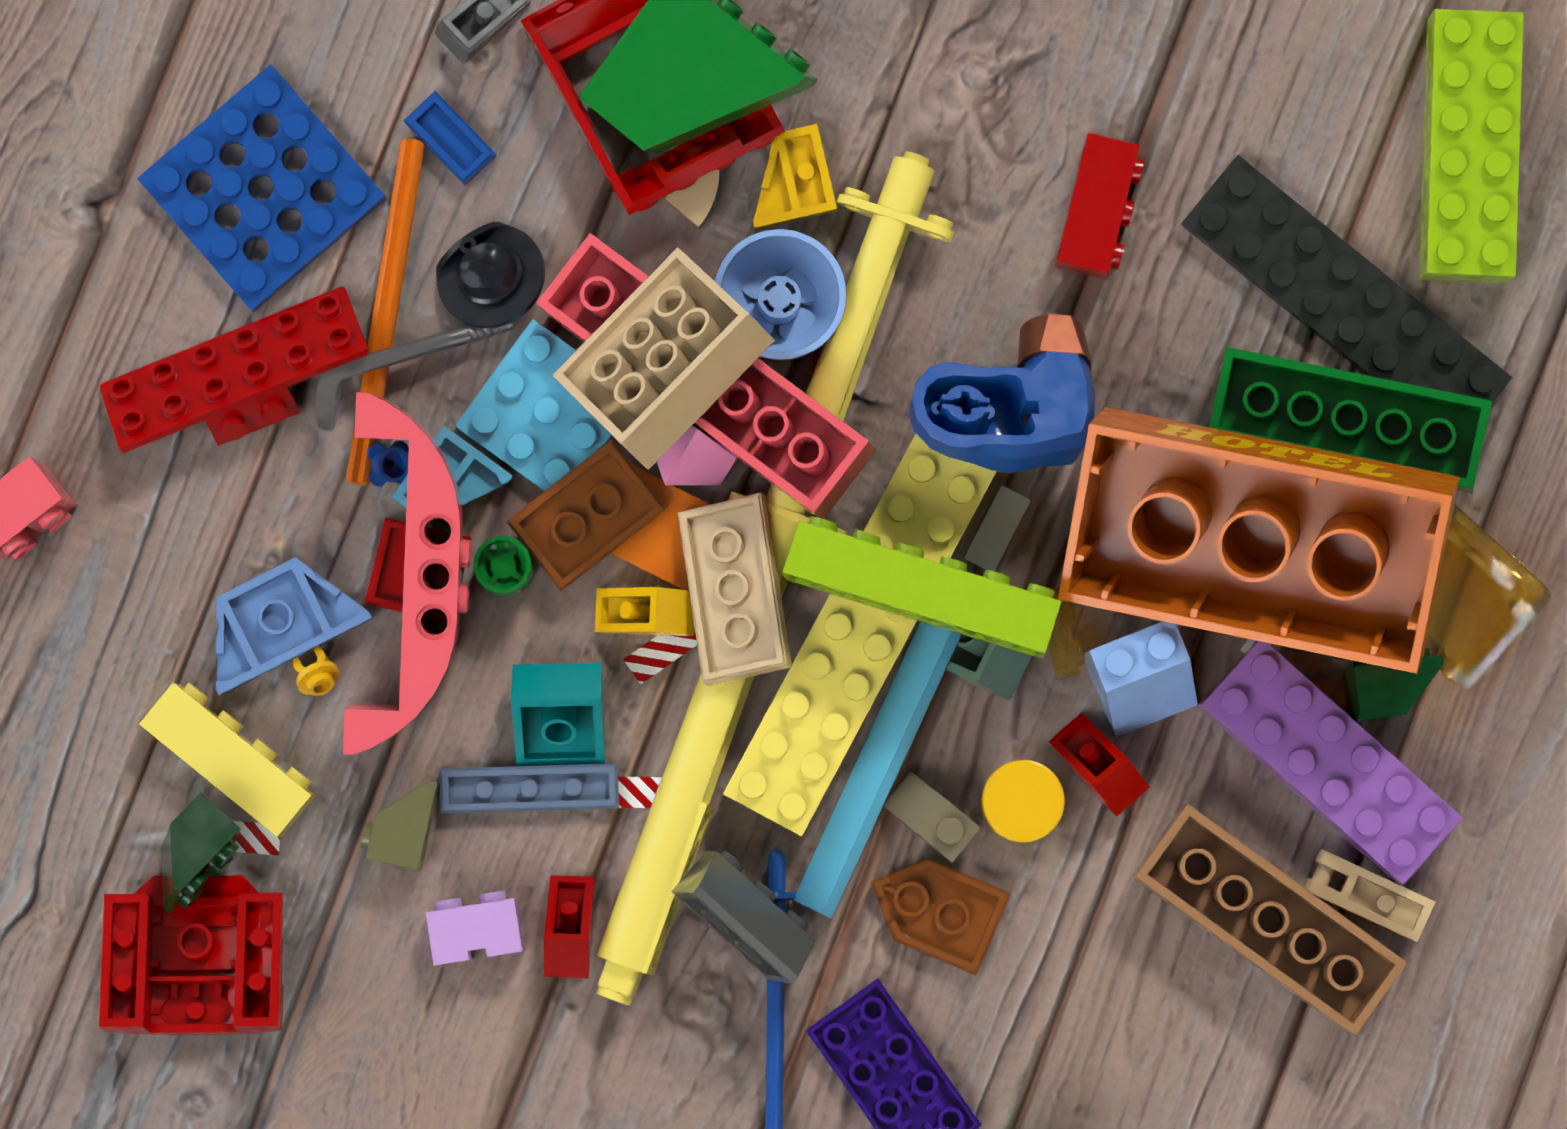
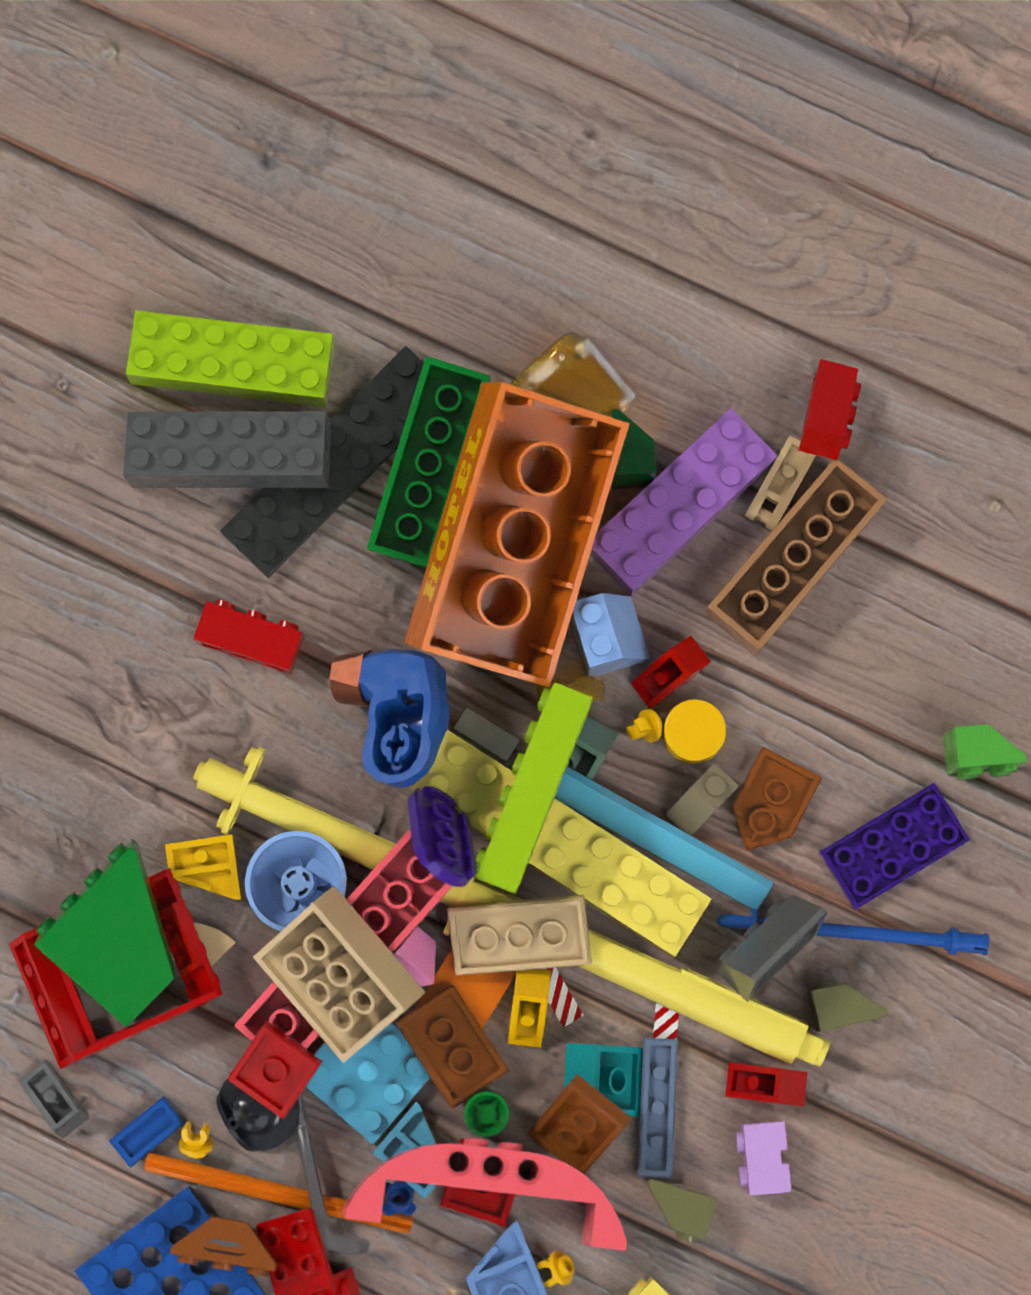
camera: 90 degrees left, 5 degrees down
(315, 249) = (226, 1244): none -> dark orange slope
(438, 200) = (196, 1145): none -> yellow plate
(496, 685) = (579, 1125): none -> dark orange tile
(537, 289) = (274, 1070): none -> red tile
(677, 1018) = (841, 1006): none -> olive slope
(849, 473) = (441, 836): none -> dark purple tile
(1025, 739) = (648, 725): none -> yellow plate
(1345, 154) = (228, 449): none -> dark grey brick
(1472, 952) = (830, 410): none -> red brick

